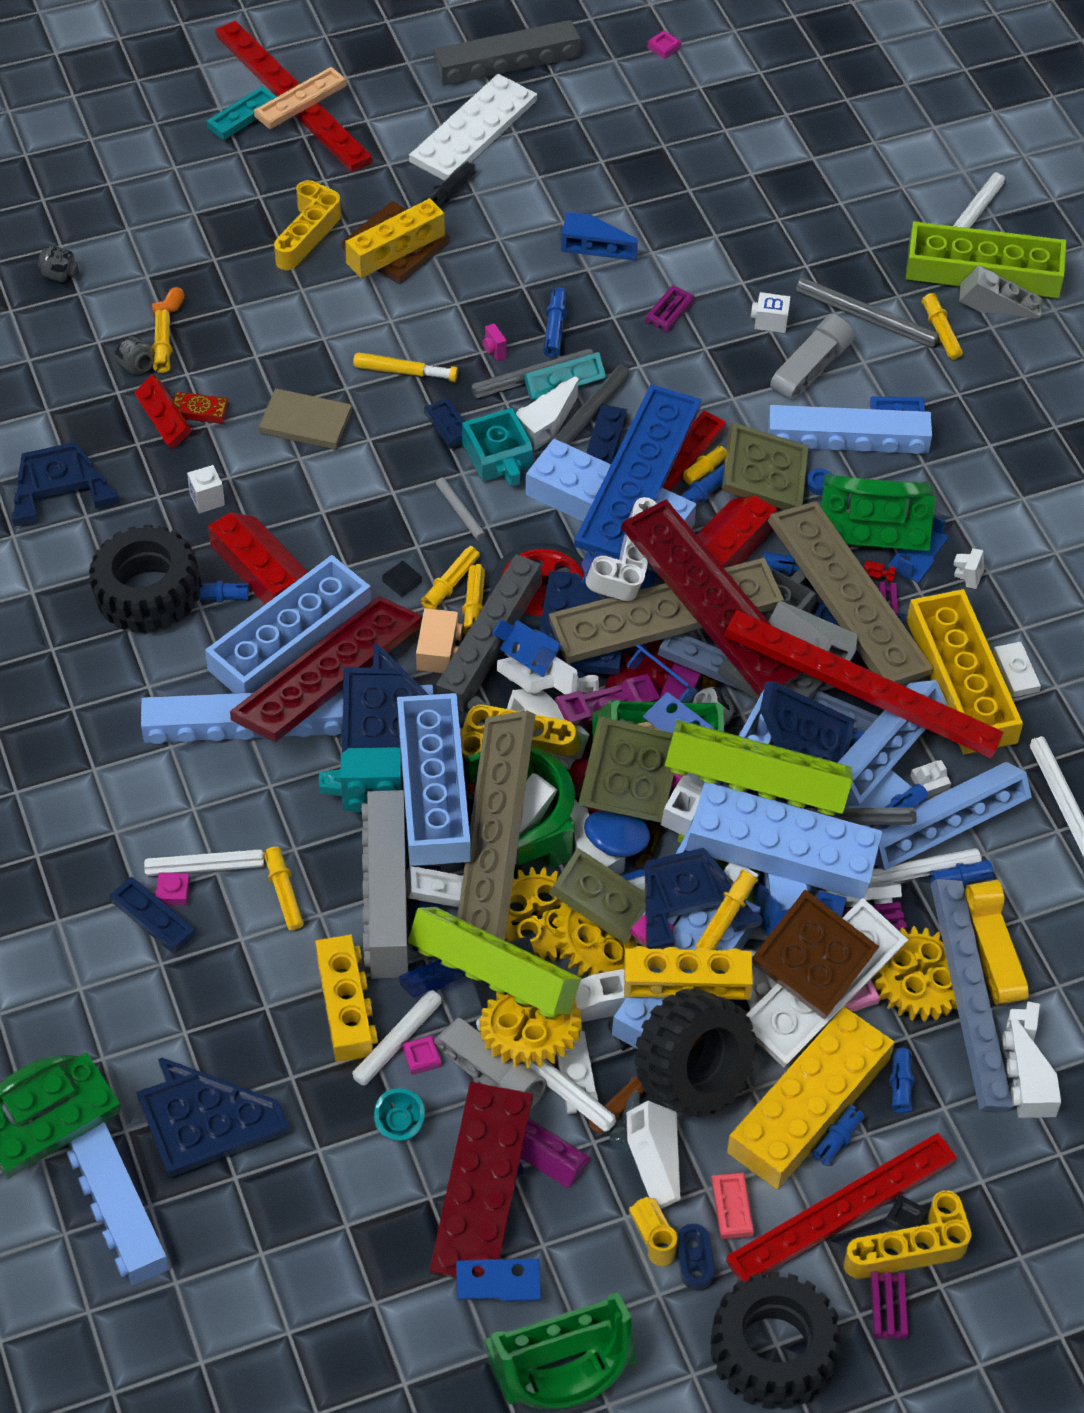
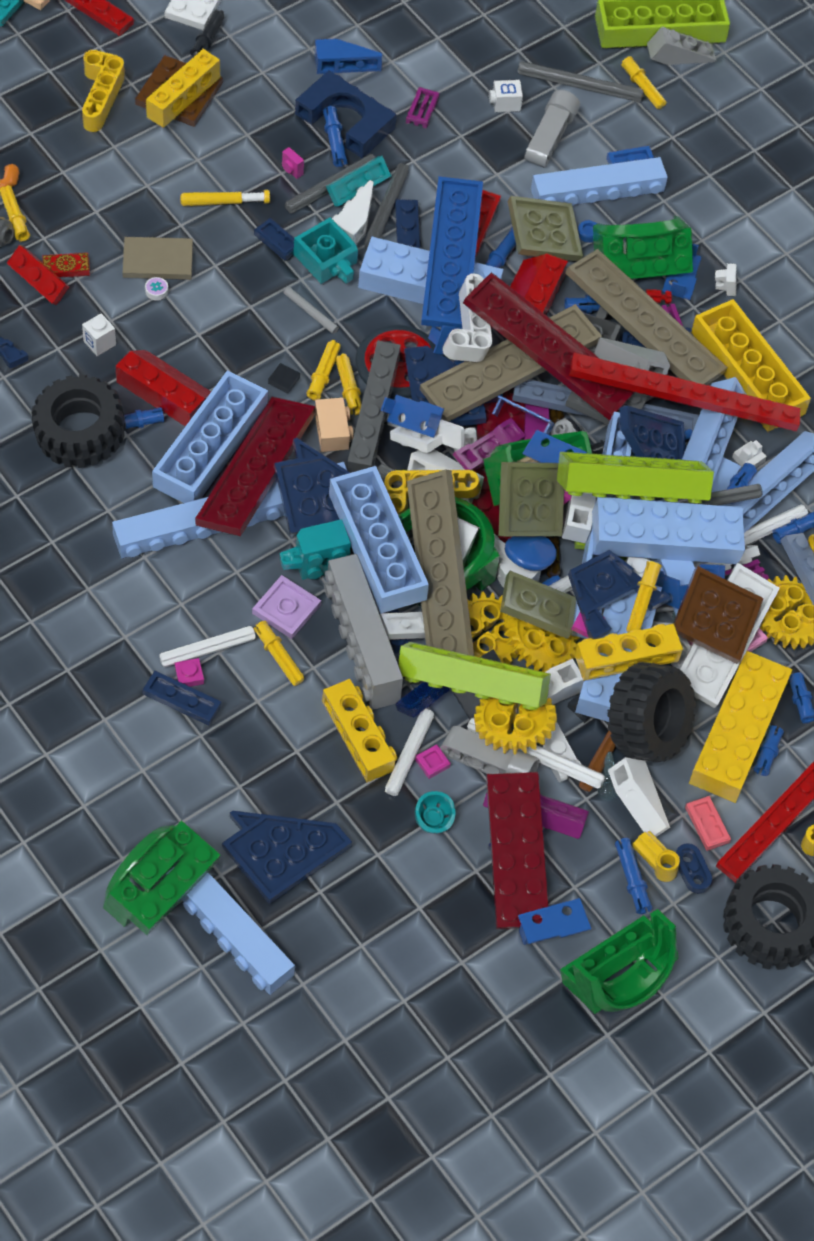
camera: 20 degrees left, 5 degrees up
(291, 452) = (156, 288): none -> tile
(312, 837) = (286, 607): none -> lavender tile
(569, 271) = (334, 91): none -> dark blue arch
(617, 1259) = (636, 885): none -> blue pin
(705, 465) = (495, 234): yellow axle -> none
(1016, 669) = (788, 353): white plate -> none

